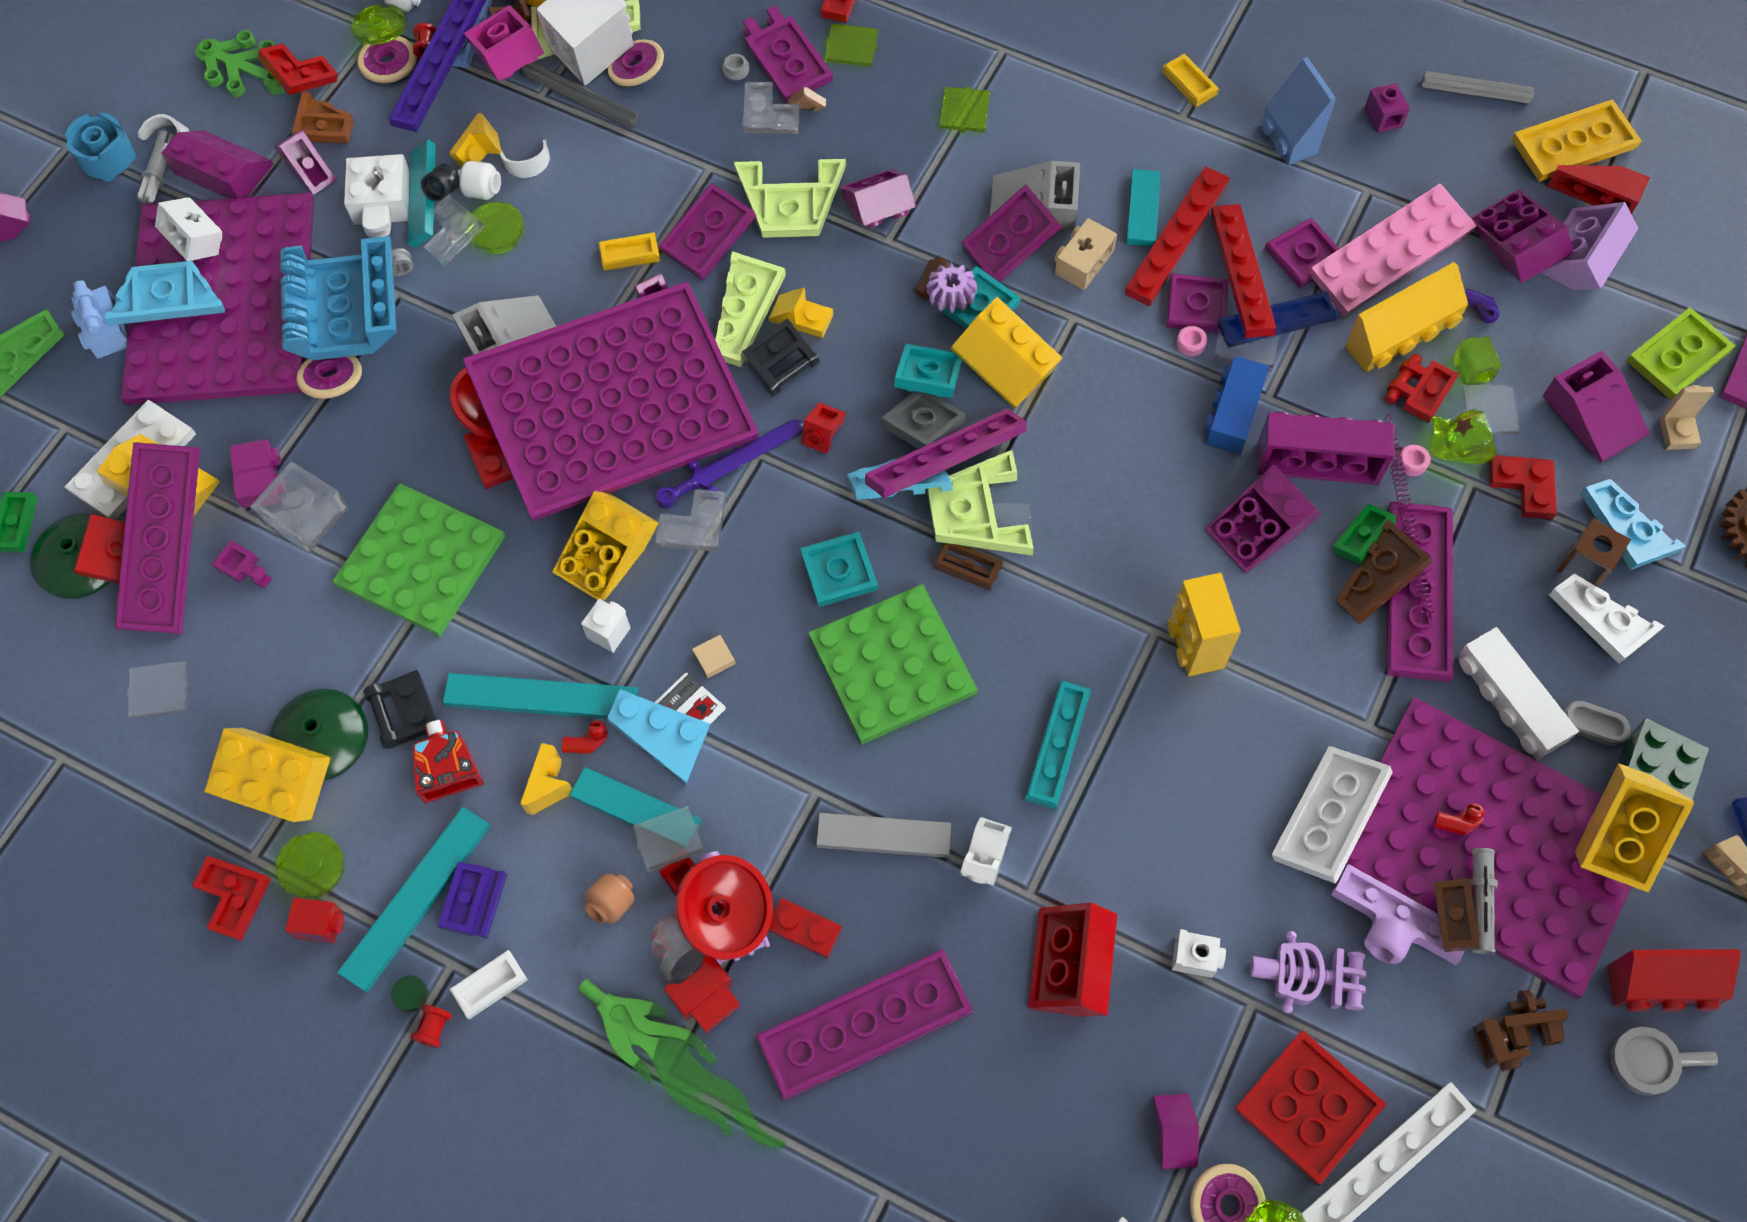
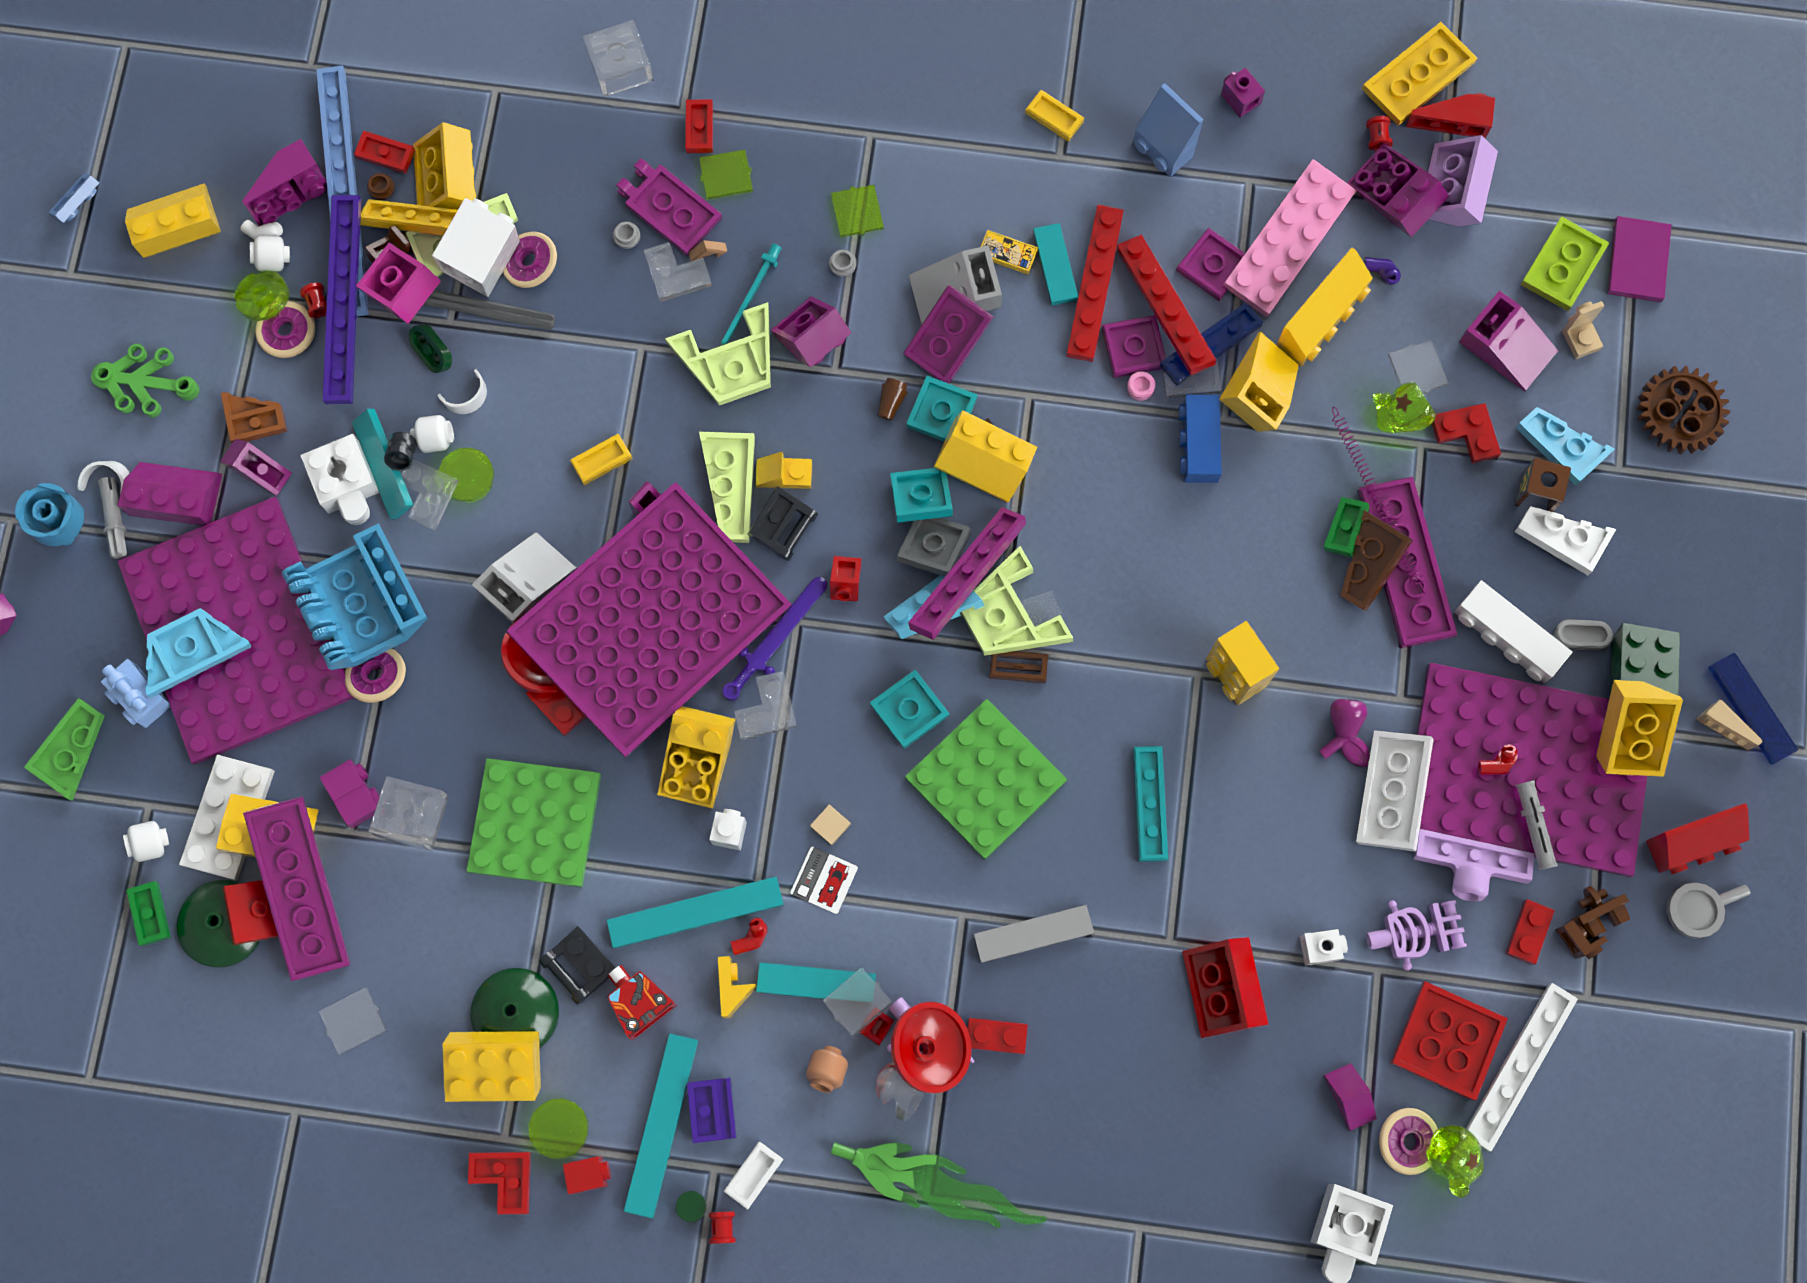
camera: 20 degrees left, 10 degrees up
(43, 454) = (145, 841): none -> white head
(188, 229) = (183, 577): white brick -> none
(239, 562) = (374, 883): magenta plate -> none
(294, 74) = (205, 379): red plate -> none
(401, 262) = (395, 541): light grey bush -> none
(476, 142) = (412, 393): yellow slope -> none
(510, 109) = (430, 348): none -> dark green plate
(662, 732) = (812, 909): medium azure wing -> none
(704, 995) = (938, 1122): red piece -> none
(707, 231) = (667, 417): magenta tile -> none
(862, 127) = (768, 259): none -> teal sword
(863, 1024) = (1074, 1098): magenta tile -> none
(932, 147) = (842, 263): none -> light grey plate
(951, 288) = (905, 403): lavender gear -> none
(986, 851) = (1124, 921): white brick -> none
(1085, 253) = (1020, 345): tan brick -> none
(1102, 185) = (1010, 252): none -> tile
(1263, 519) = (1257, 541): magenta slope -> none
(1303, 724) = (1347, 719): none -> magenta piece
(1317, 370) = (1262, 385): none -> yellow slope
(1326, 448) = (1291, 459): magenta brick -> none
(1415, 460) = (1368, 440): bright pink tile -> none
(1429, 392) = (1362, 371): red plate -> none
(1441, 1019) = (1529, 932): none -> red plate
(1456, 915) = (1519, 845): reddish brown plate -> none
(1477, 87) = (1316, 43): light grey axle -> none
(1477, 360) = (1394, 328): clear neon green brick -> none
(1517, 181) = (1375, 139): none -> red bush

